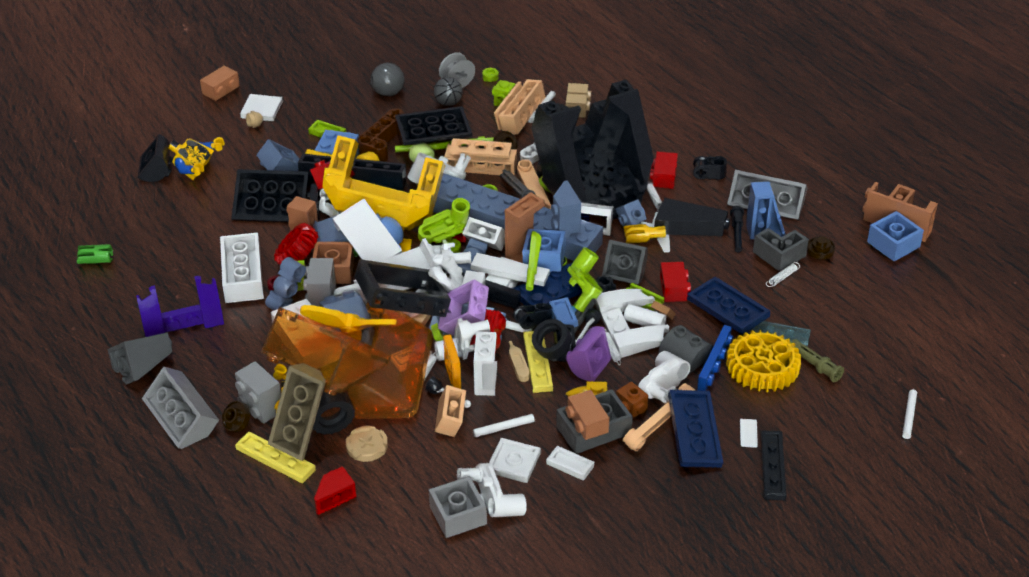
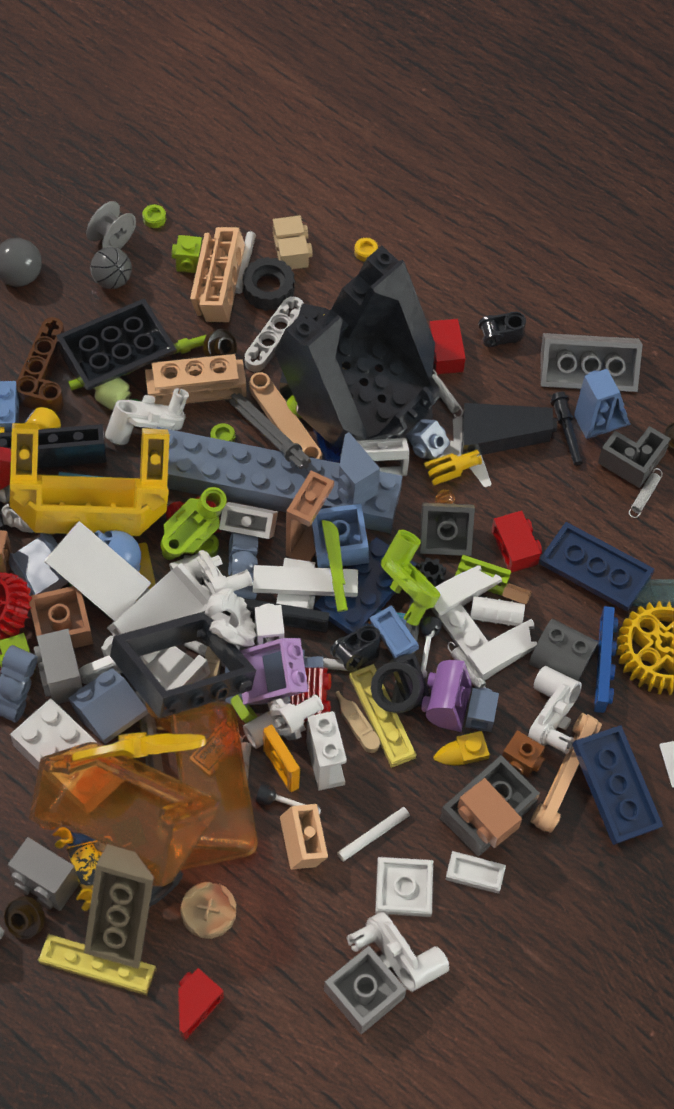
camera: 20 degrees left, 20 degrees up
(611, 369) = (482, 709): none -> sand blue brick

